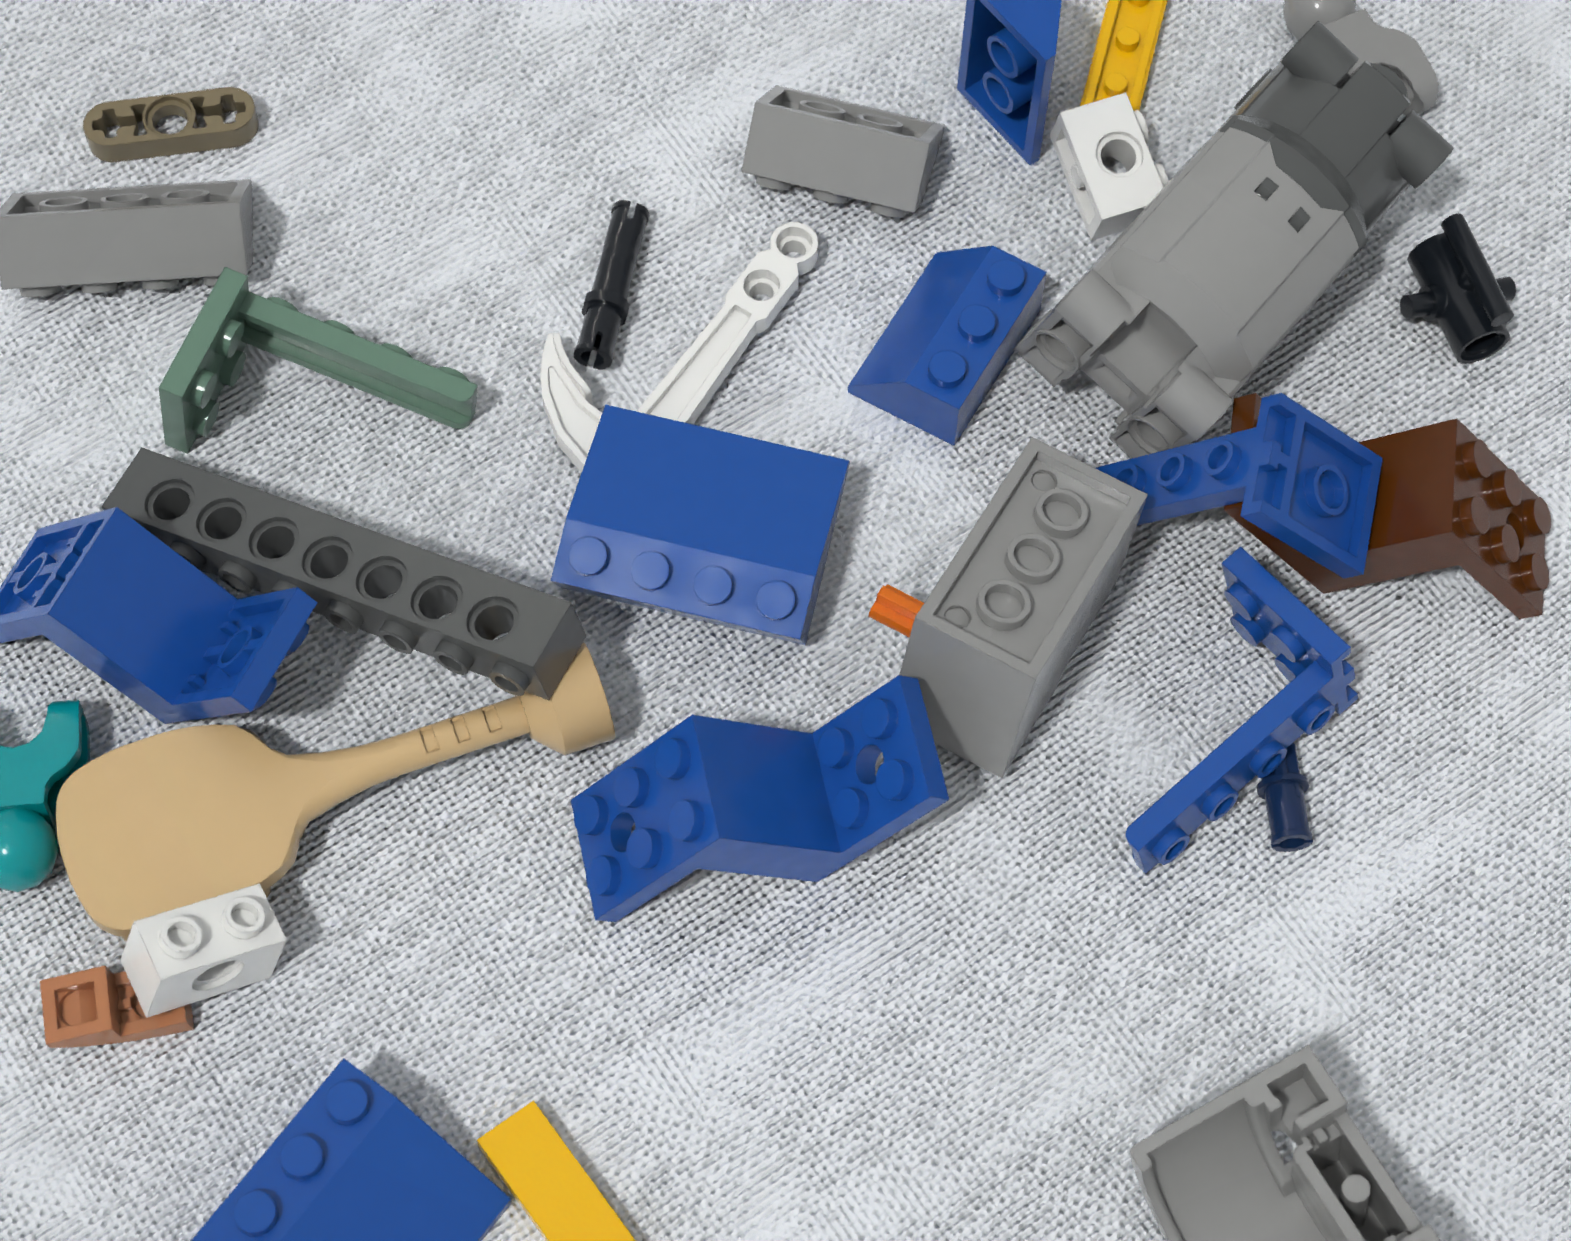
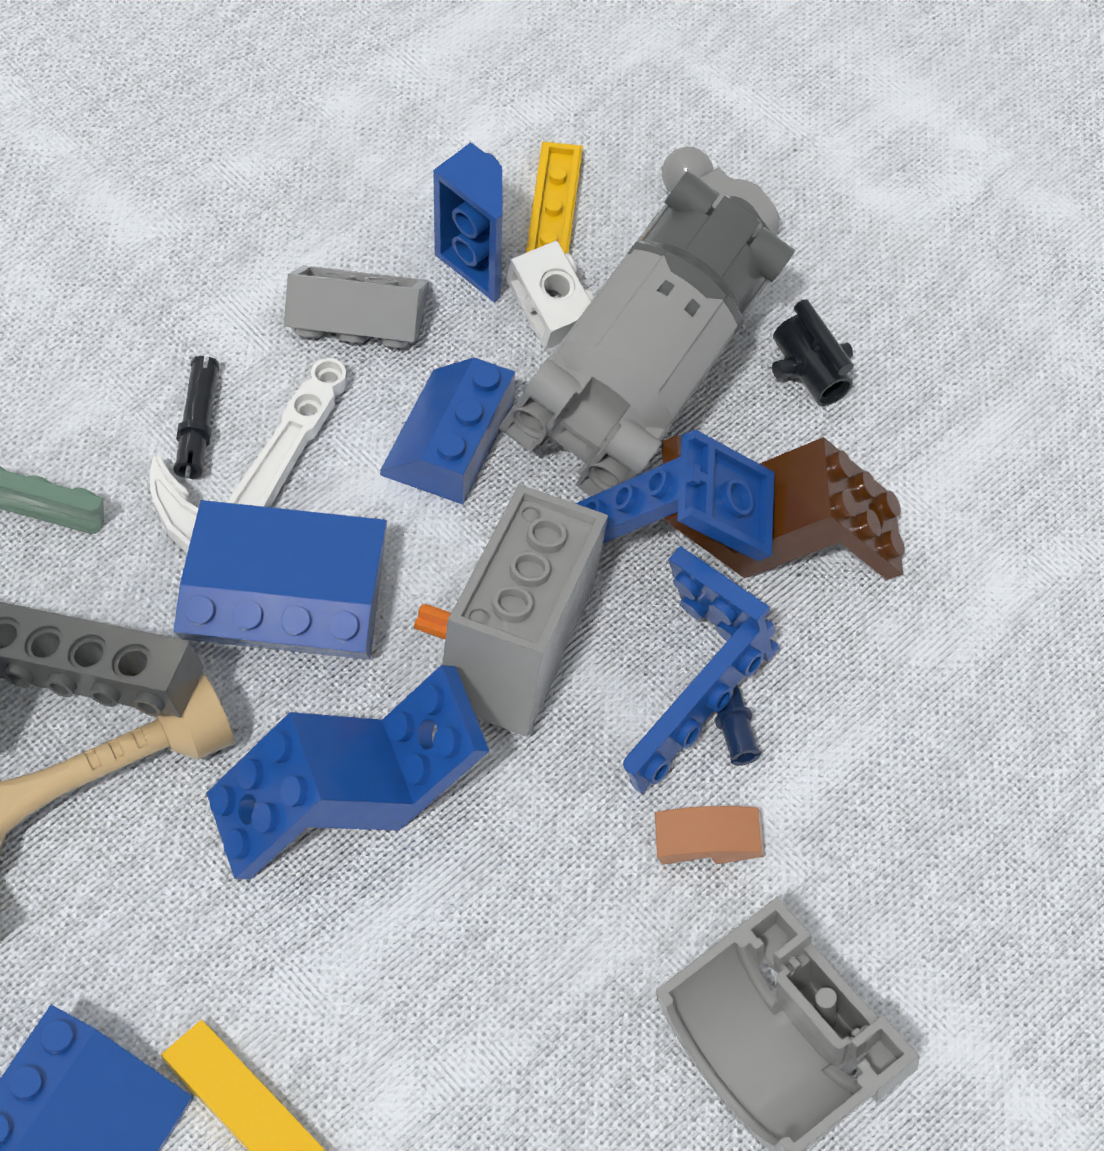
camera: 10 degrees left, 5 degrees down
(1229, 939) = (709, 831): none -> nougat slope

